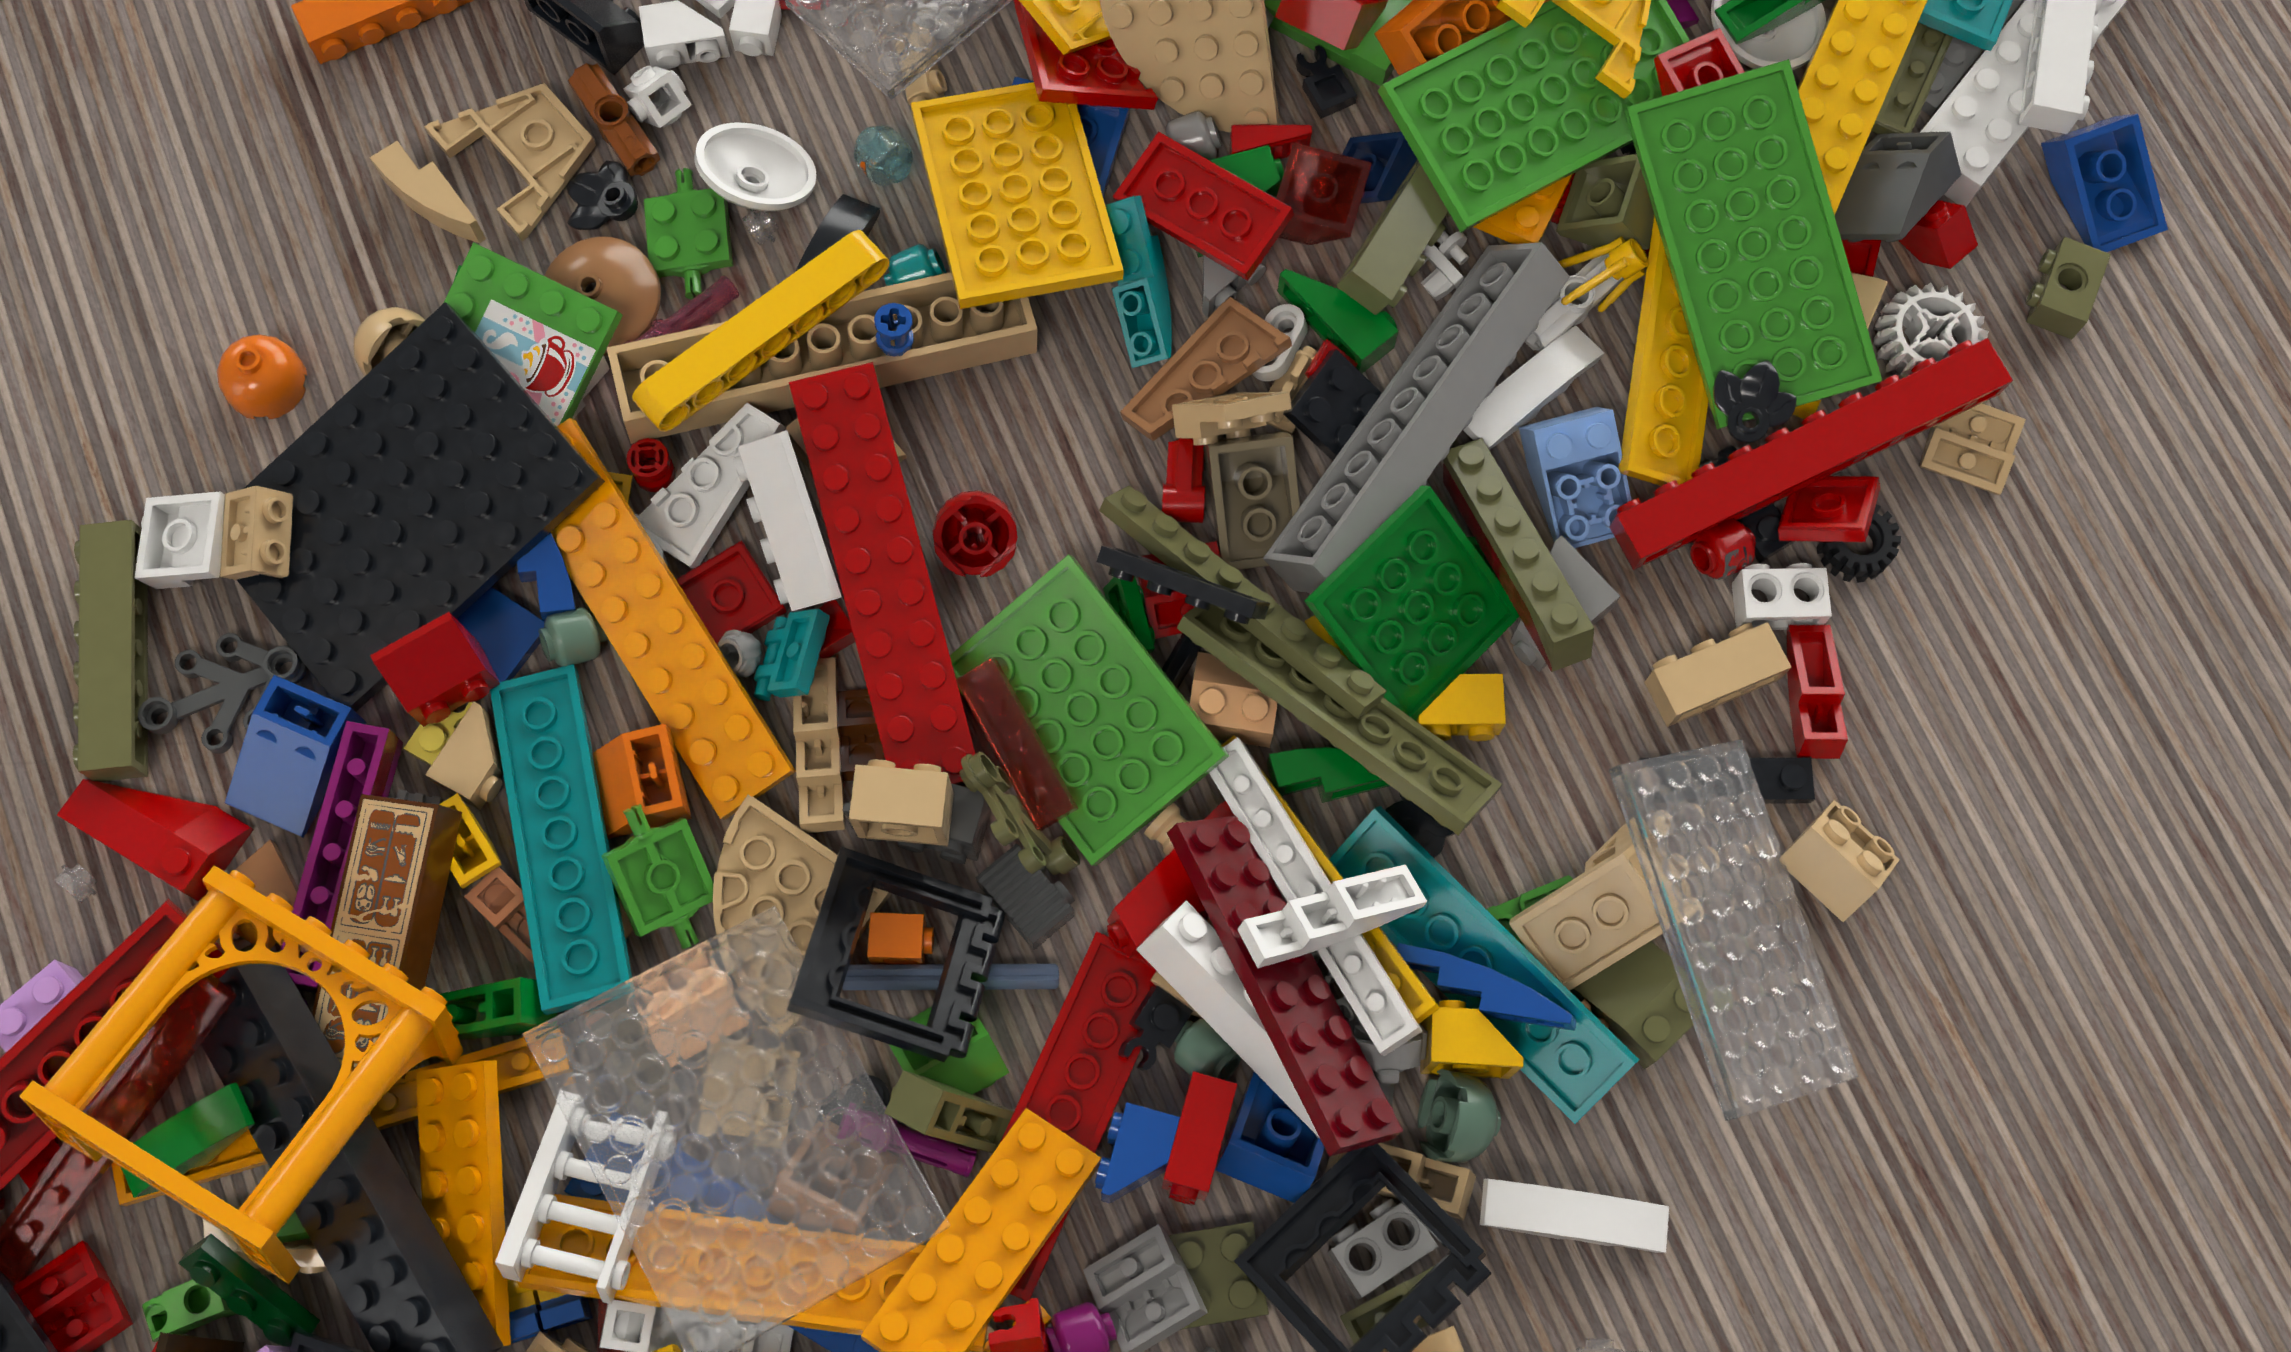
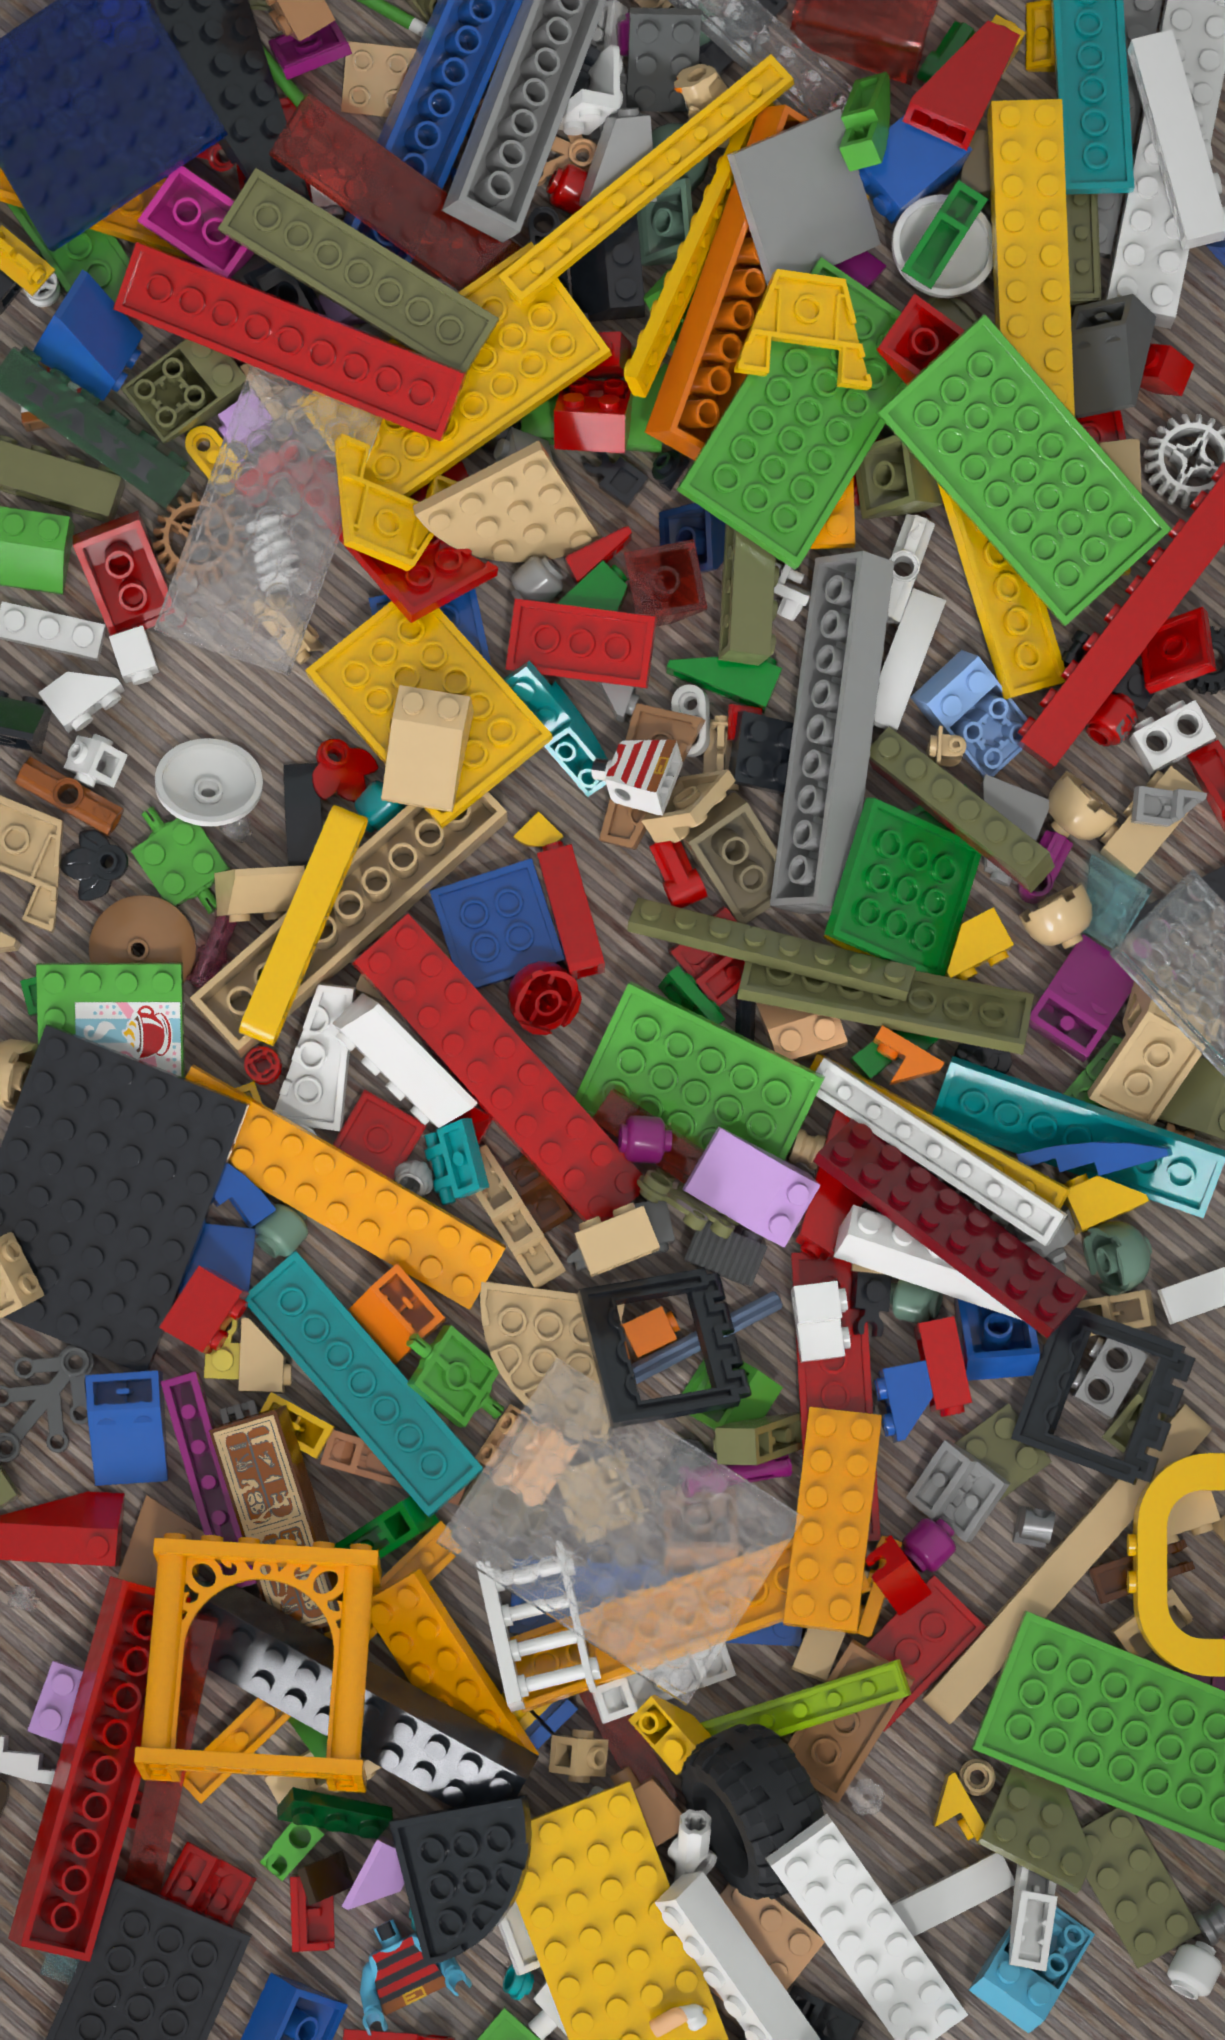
camera: 25 degrees left, 10 degrees up
(195, 1134) = (236, 1728): green slope -> none
(734, 279) = (256, 892): none -> tan slope
(883, 155) = (301, 719): clear light blue head -> none
(885, 323) = (409, 864): blue bush -> none
(896, 228) = (344, 776): none -> red plate
(969, 441) = (497, 923): none -> blue plate
(987, 217) = (426, 748): none -> tan slope
(997, 722) = (644, 1139): none -> magenta head
(1050, 468) = (570, 911): none -> red slope
(1062, 378) = (538, 832): none -> yellow tile
(1085, 1011) = (818, 1321): none -> white brick
(1087, 831) = (752, 1186): none -> lavender slope
(1197, 356) = (641, 773): none -> torso
(1198, 591) = (710, 964): black plate -> none
(1332, 916) = (964, 1164): white slope -> none
(1335, 788) = (915, 1062): none -> orange slope
(1374, 106) = (668, 468): none -> black plate
(1533, 488) = (945, 749): none -> tan hinge
(1551, 820) = (1081, 999): none -> magenta slope
(1569, 720) = (1060, 917): none -> tan cylinder
(1604, 653) = (1059, 849): none -> magenta piece
(1625, 260) = (929, 527): yellow plant -> none
(1635, 731) = (1114, 901): none -> clear light blue wing
(1643, 621) = (1078, 809): none -> tan cylinder
(1740, 658) = (1163, 806): none -> light grey slope
(1753, 395) = (1081, 591): black plate -> none

